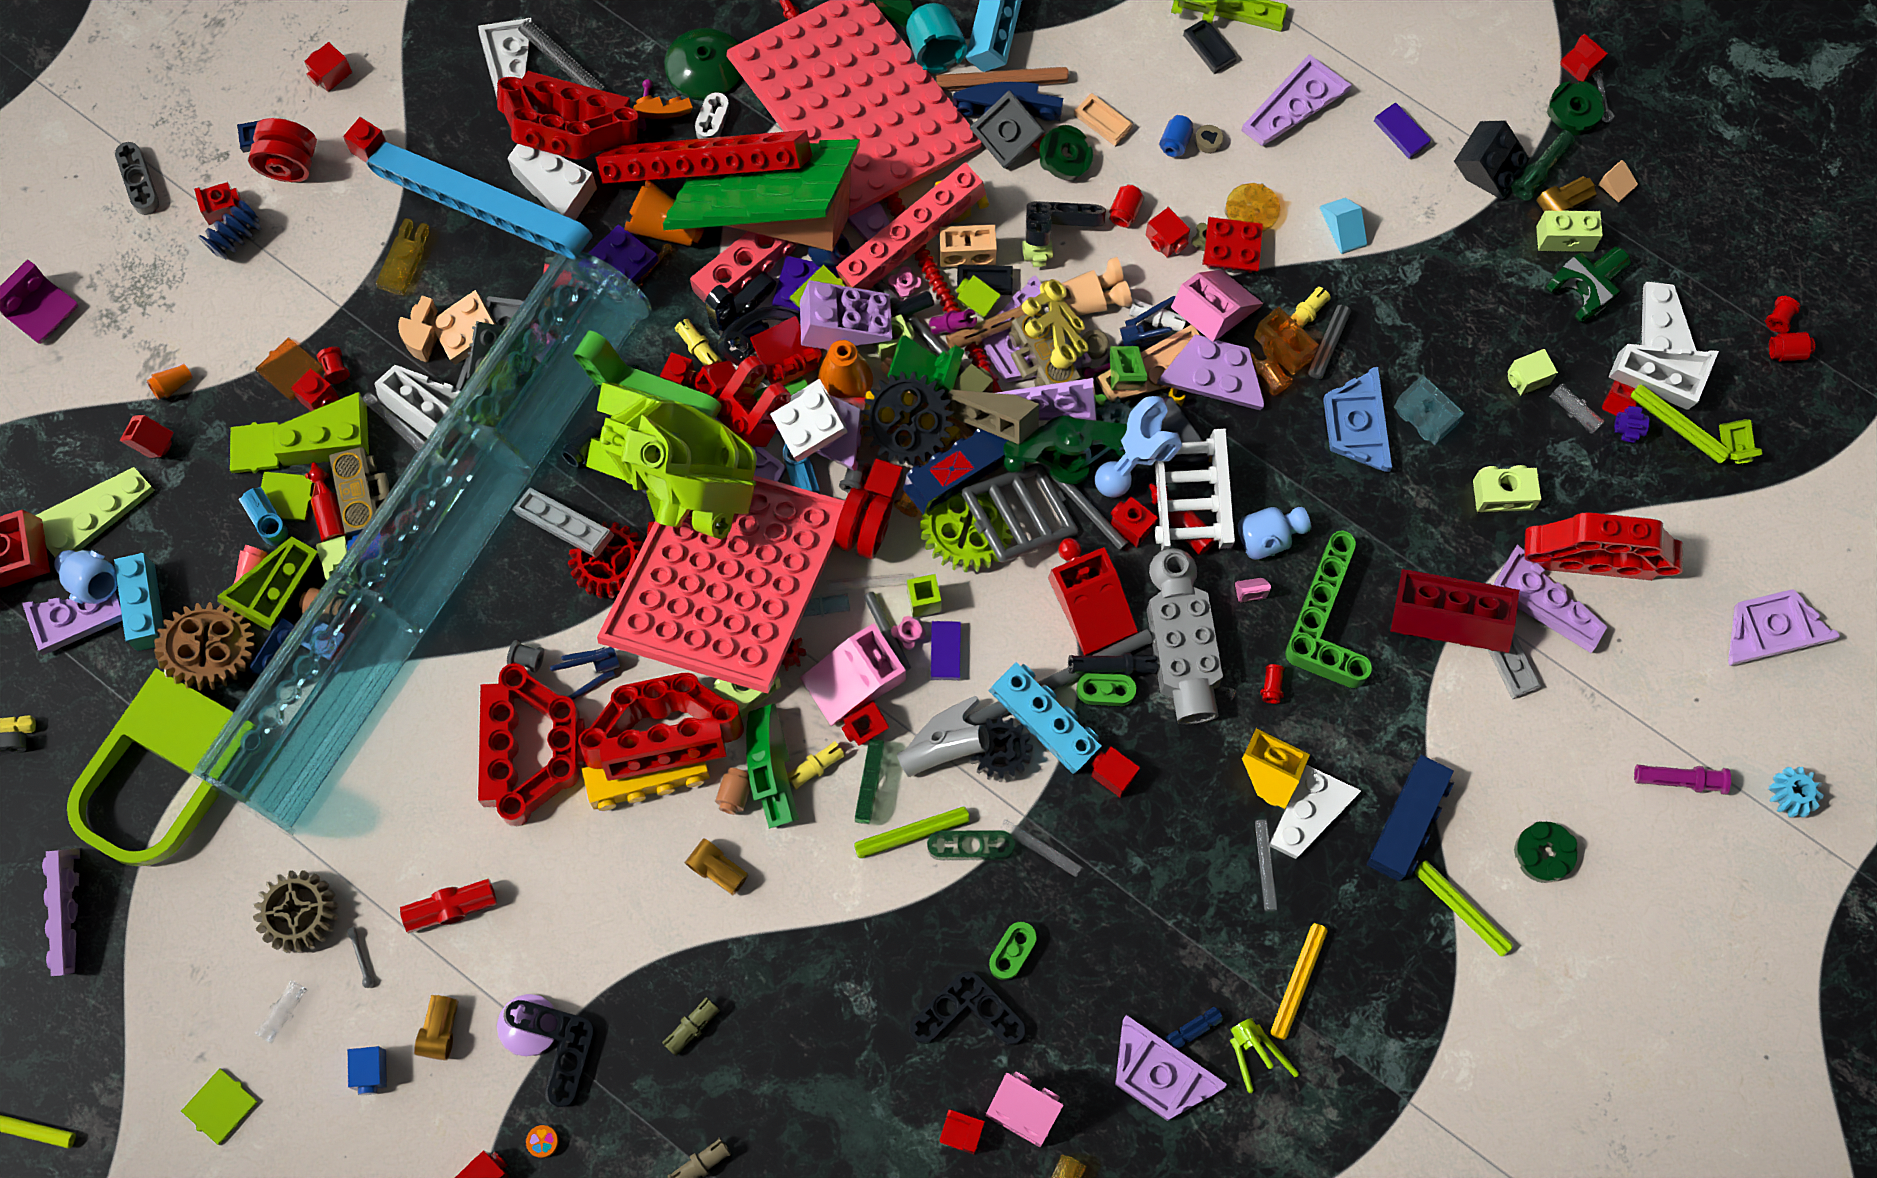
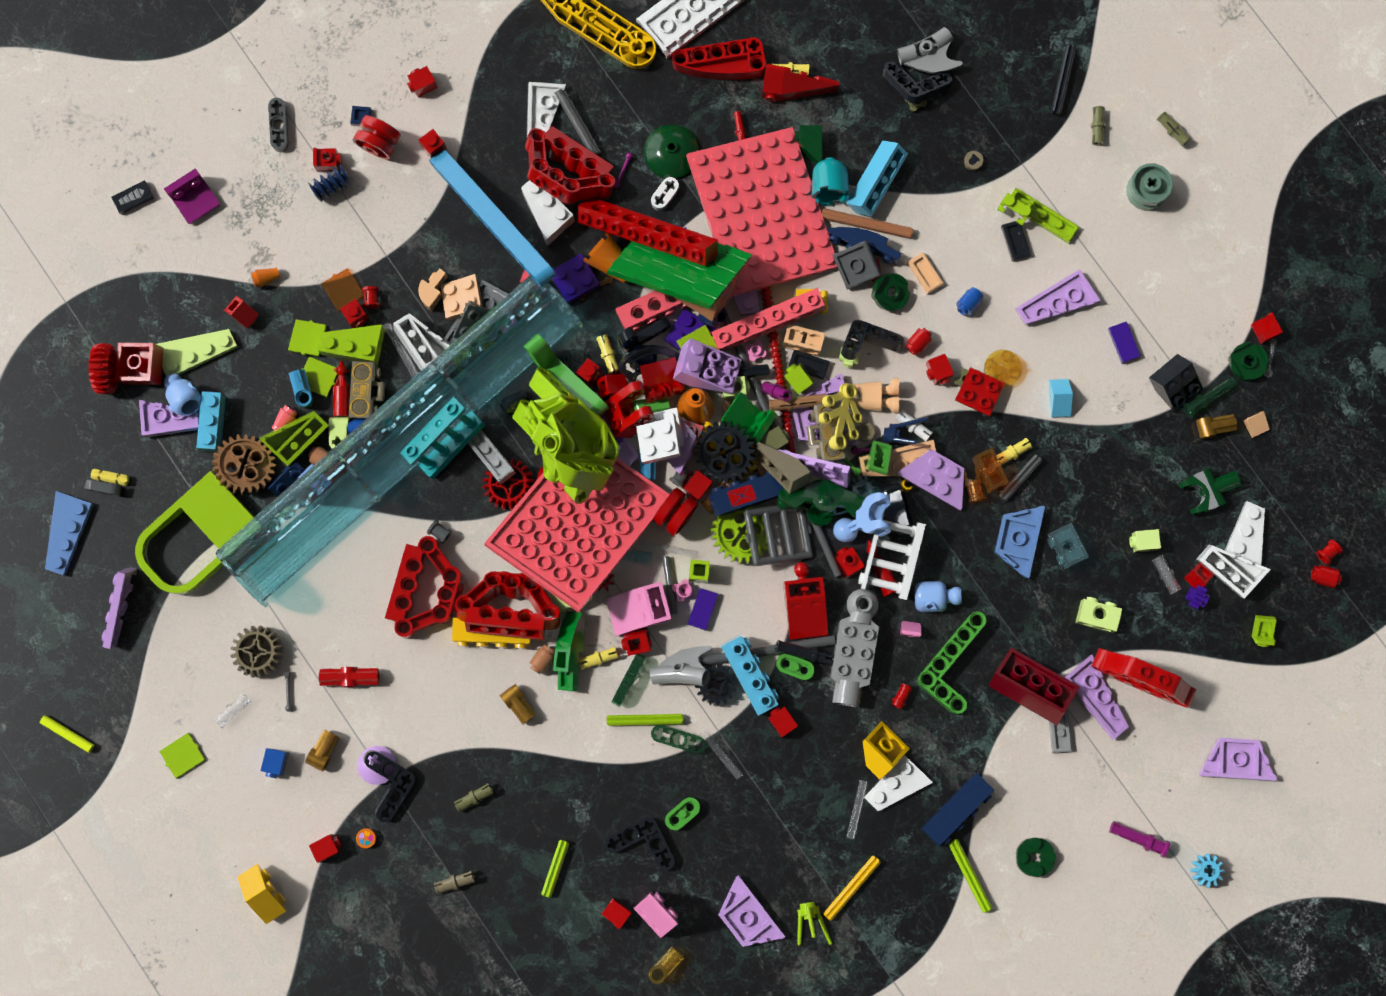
camera: 20 degrees right, 10 degrees up
(402, 258) = (434, 234): clear yellow hinge -> none
(509, 527) = (452, 443): none -> teal fence
(603, 660) = (484, 551): dark blue plant -> none
(654, 108) = (627, 177): orange slope -> none
(847, 1094) = (555, 868): none -> lime axle
(1195, 1028) = (778, 896): dark blue axle -> none
(1209, 138) = (991, 309): dark tan tile -> none
(1214, 303) = (953, 430): bright pink slope -> none
(1569, 231) = (1208, 450): yellowish green brick -> none
(1680, 423) = (1229, 607): lime axle -> none

